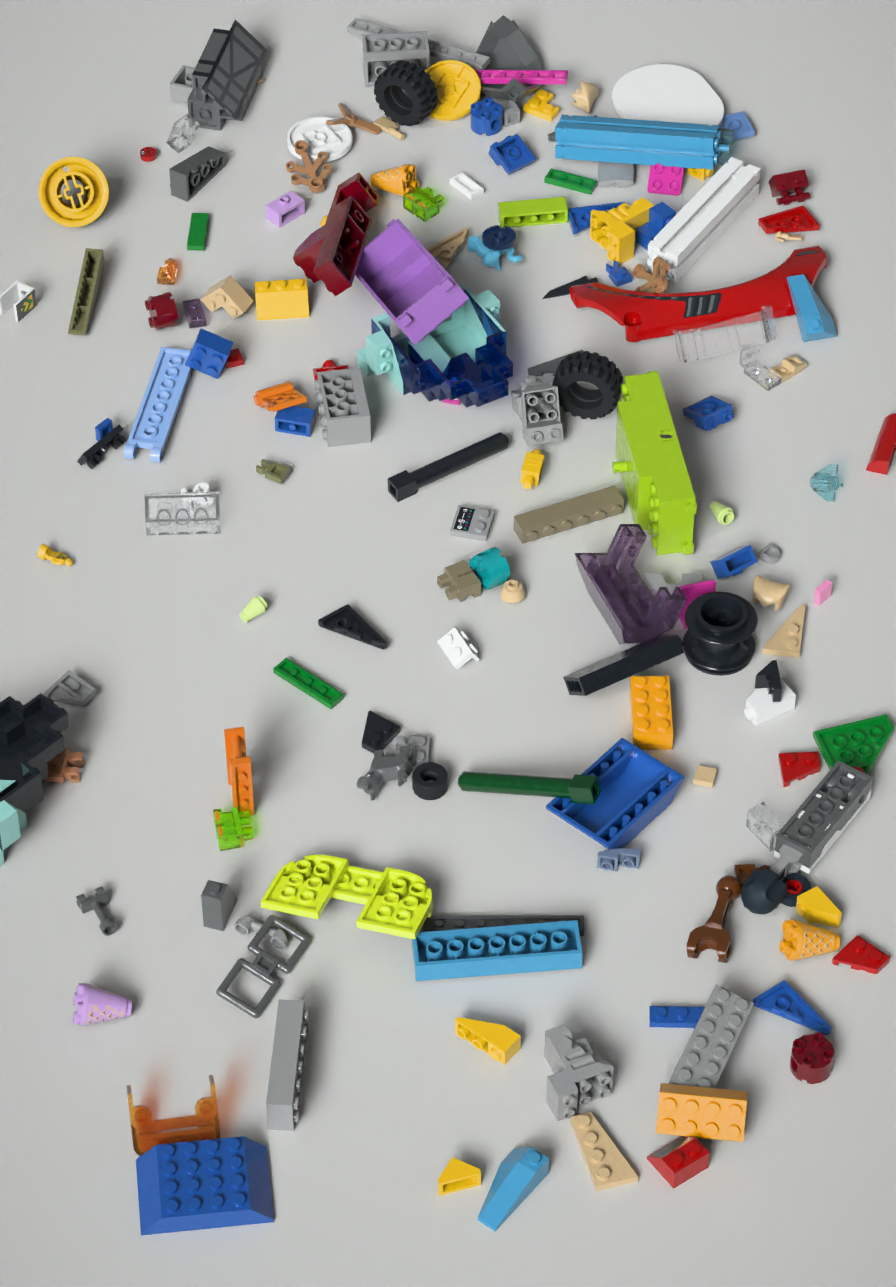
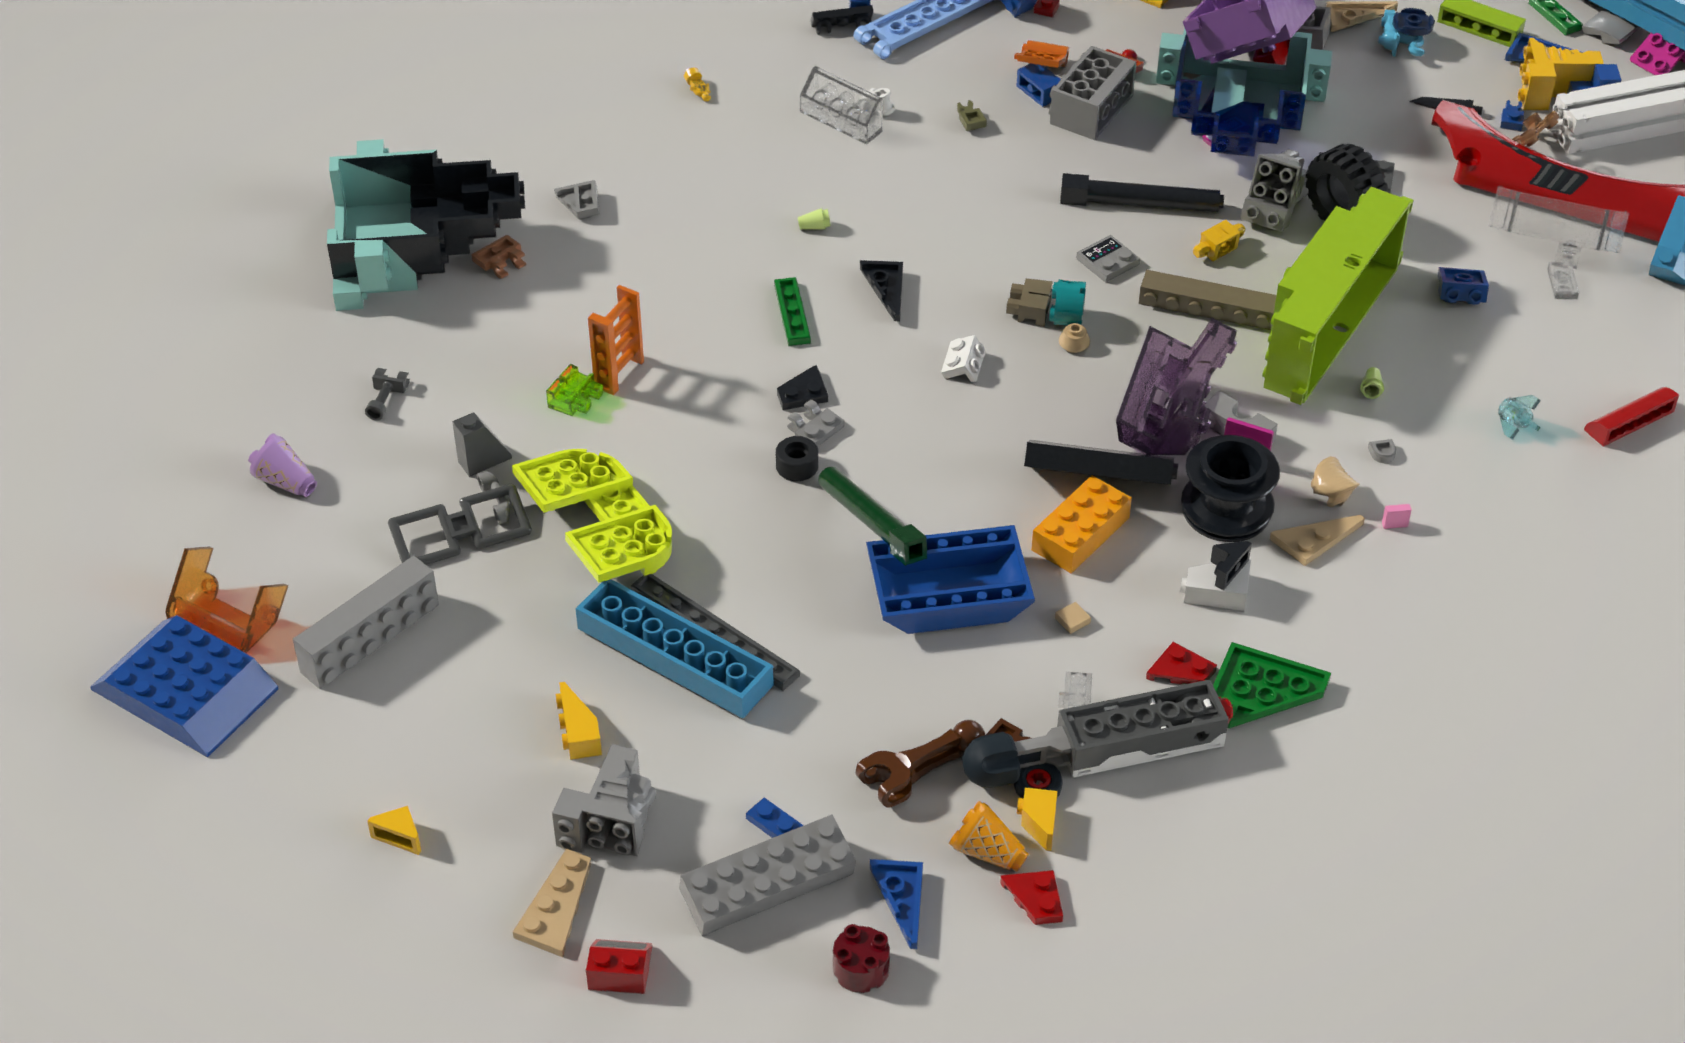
camera: 40 degrees right, 0 degrees up
(387, 769) = (765, 422): dark grey animal -> none
(512, 1184) = (447, 874): dark azure wedge -> none
(613, 858) = (889, 636): sand blue slope -> none
(701, 1112) = (682, 930): light orange brick -> none
(733, 562) = (1328, 433): blue brick -> none
(789, 367) = (1604, 289): tan slope -> none

